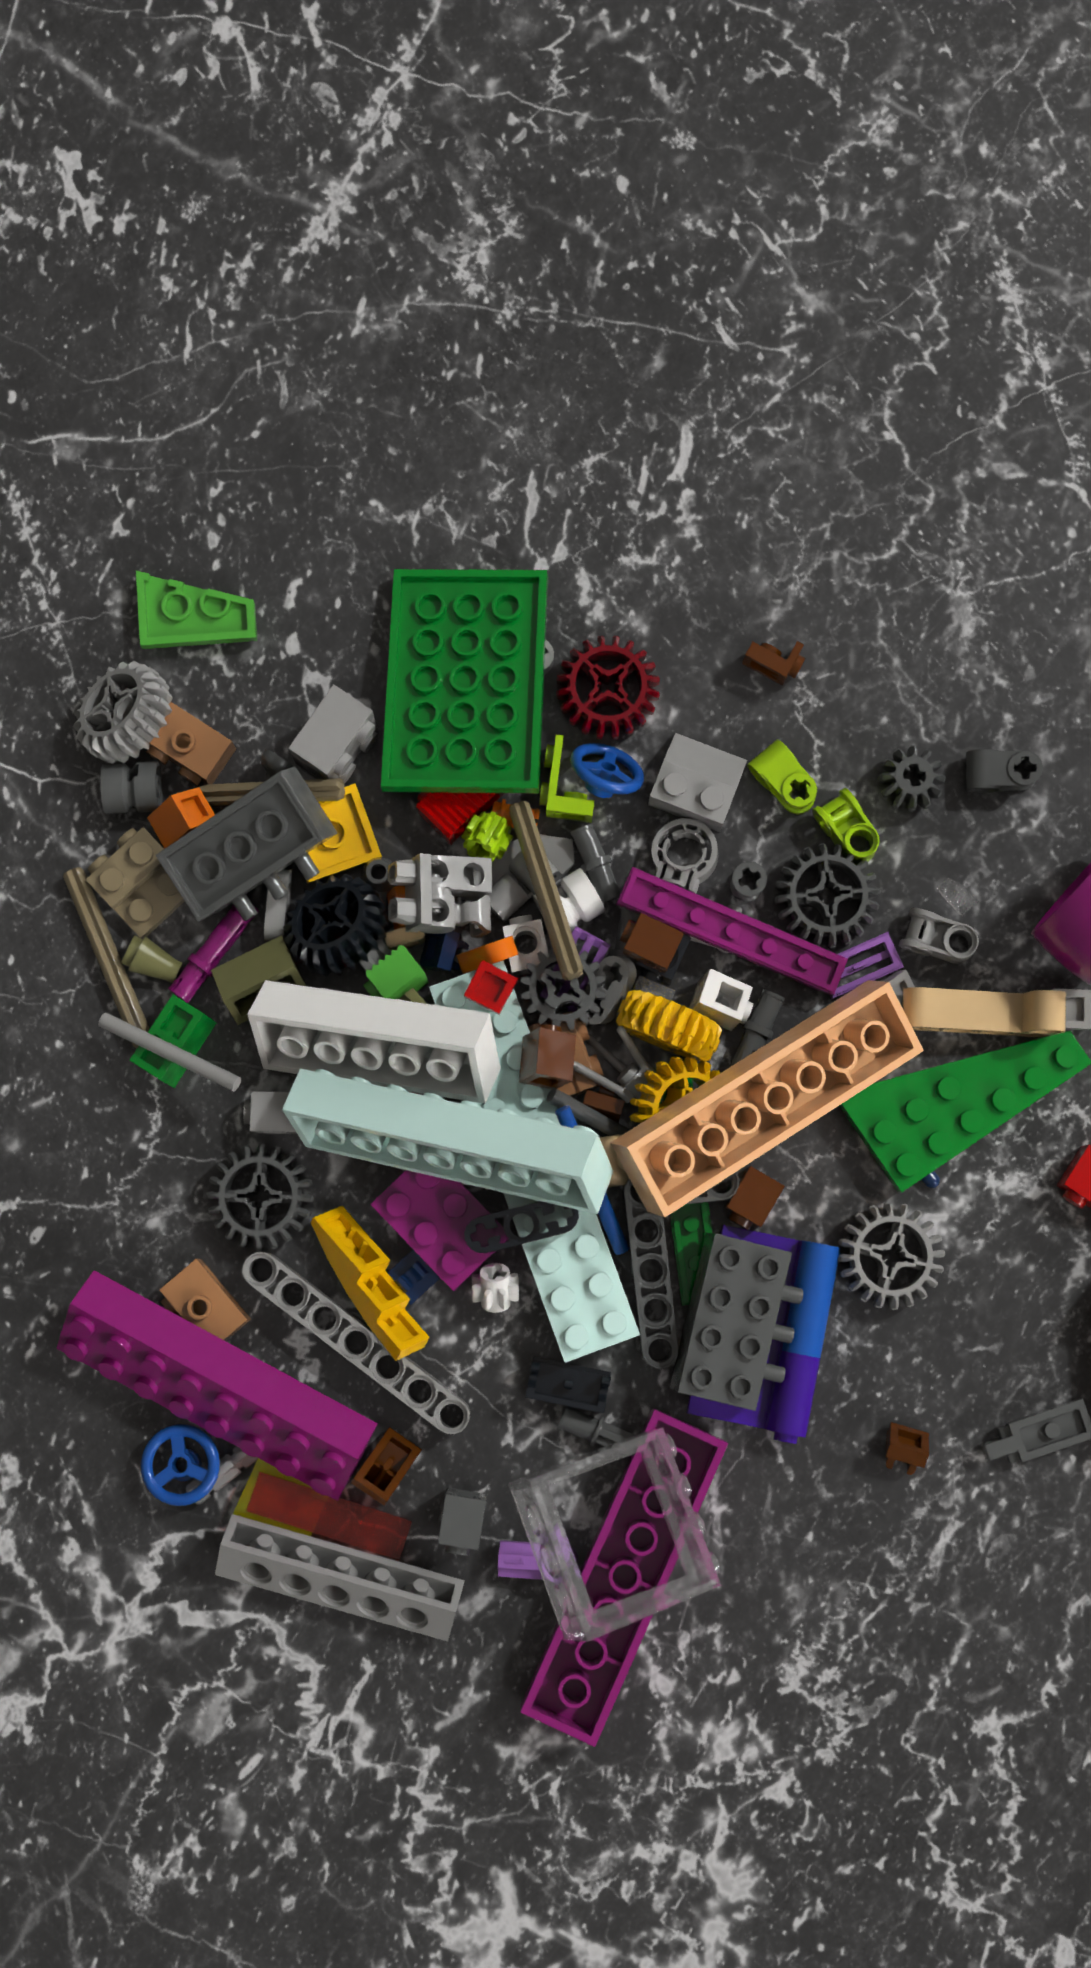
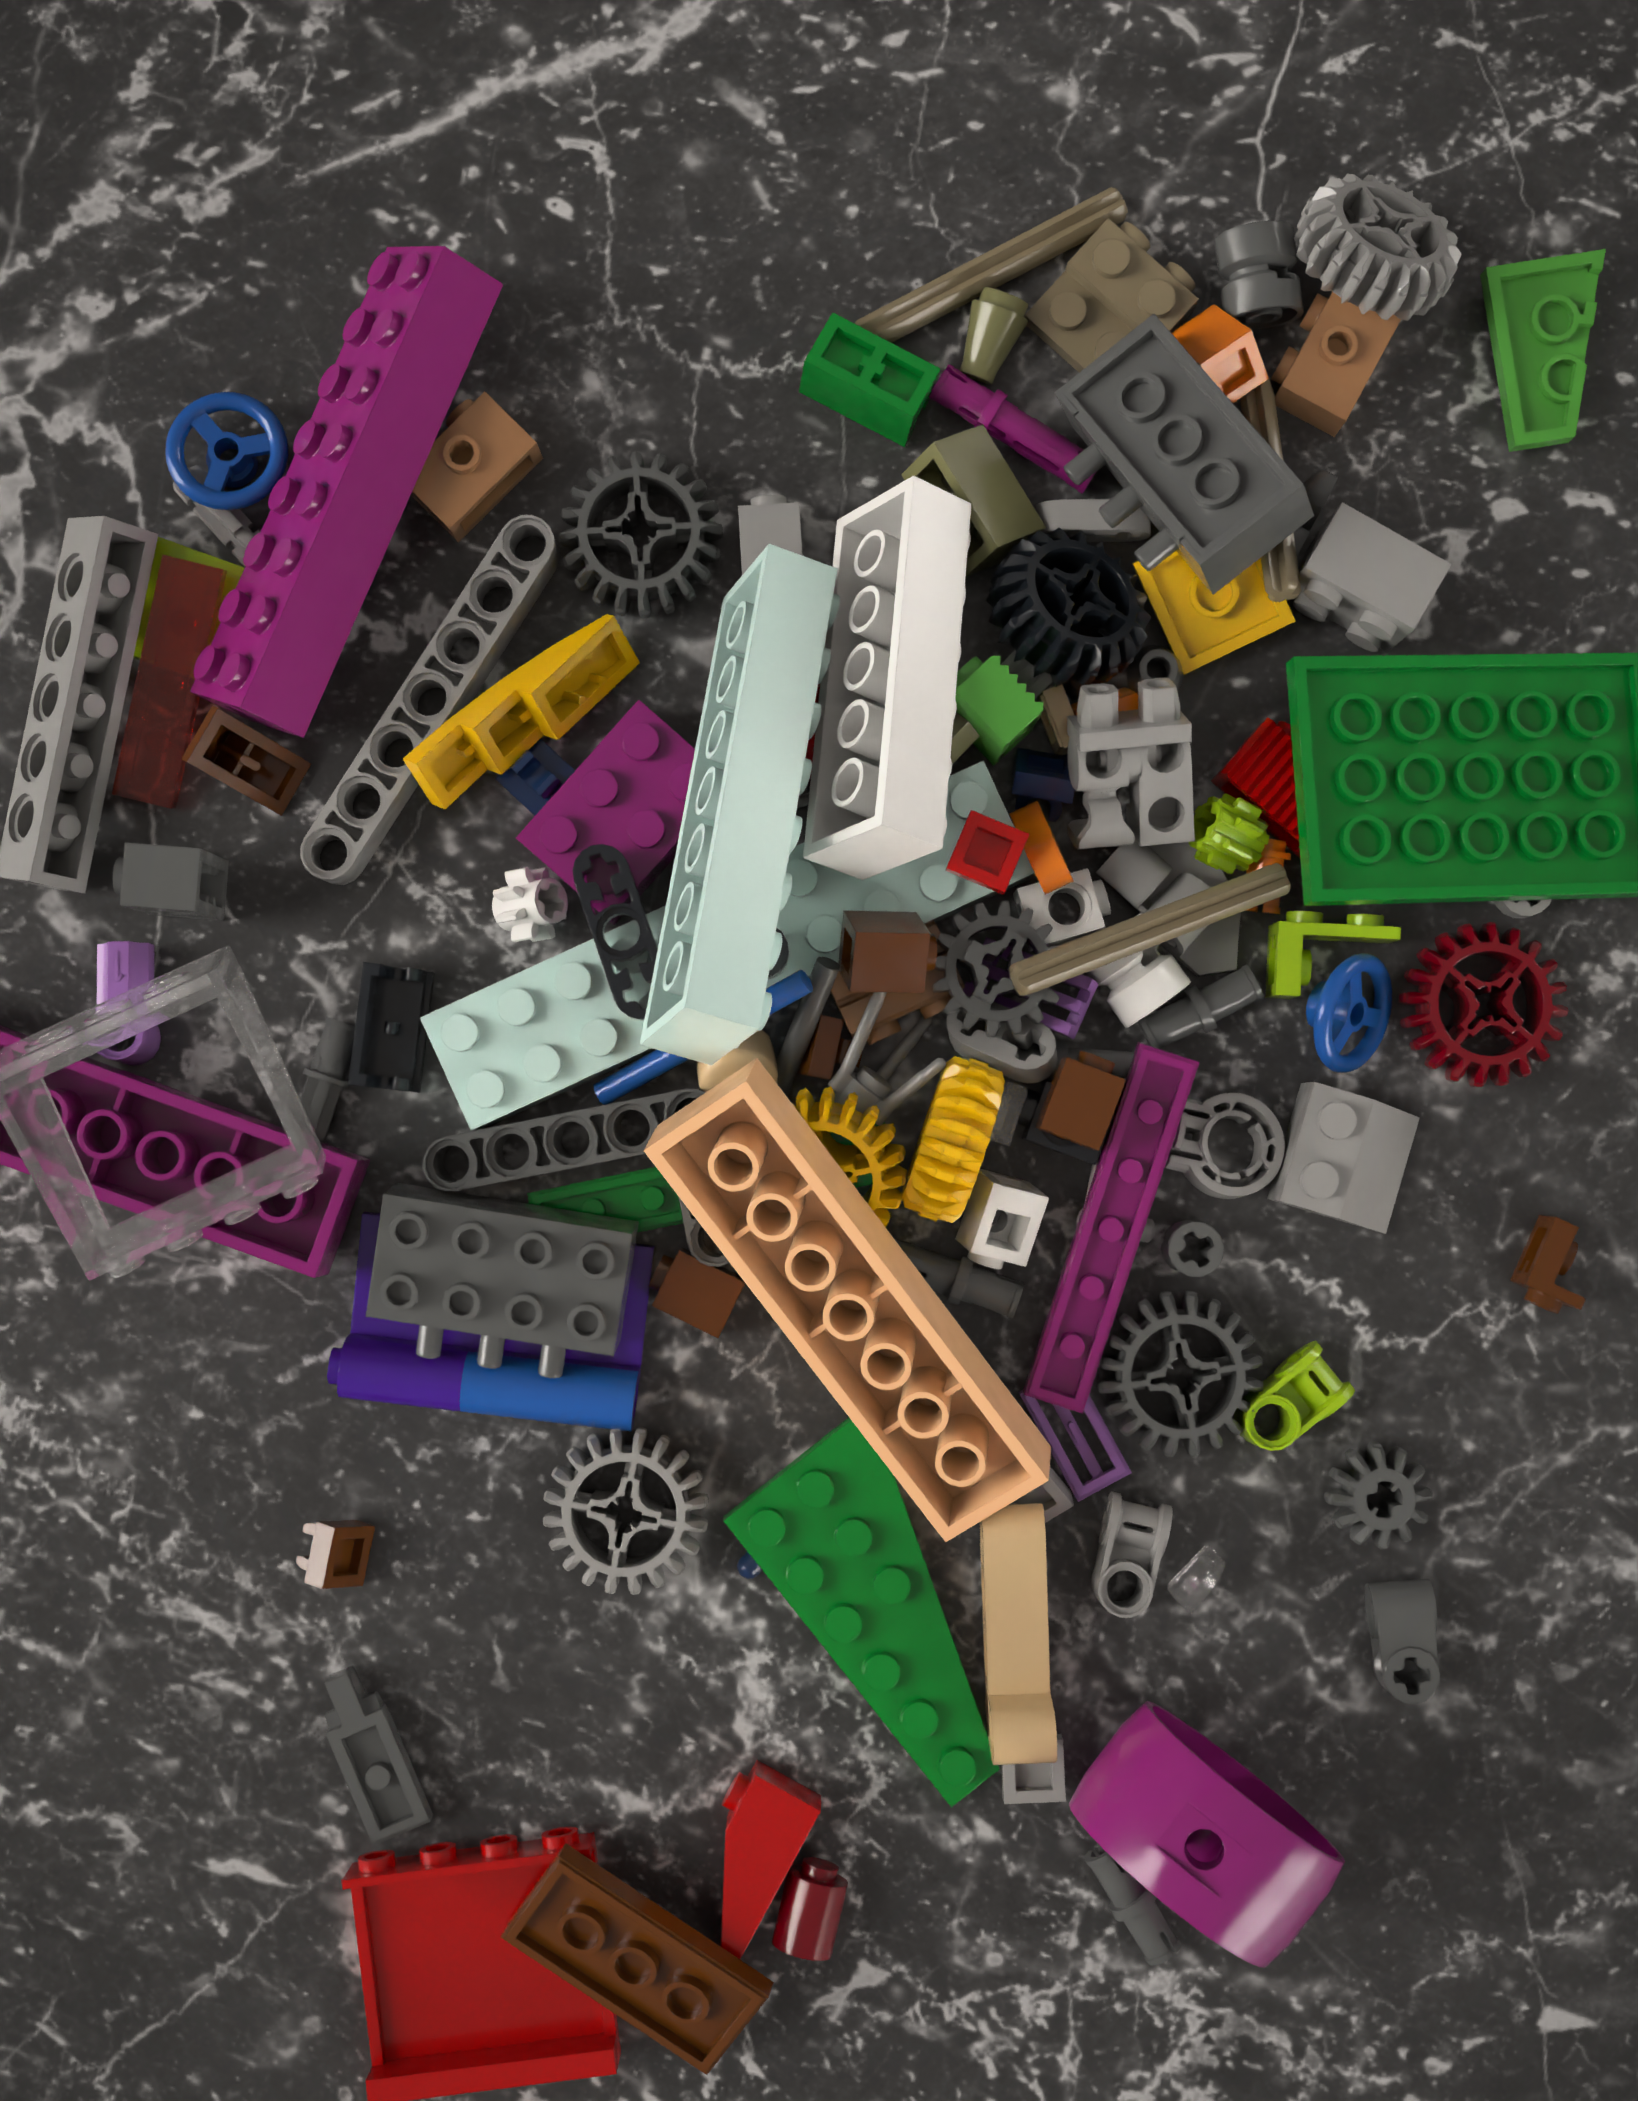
camera: 90 degrees right, 5 degrees up
(169, 1051) = (848, 369): light grey bar -> none
(780, 772) = (1370, 1285): lime piece -> none

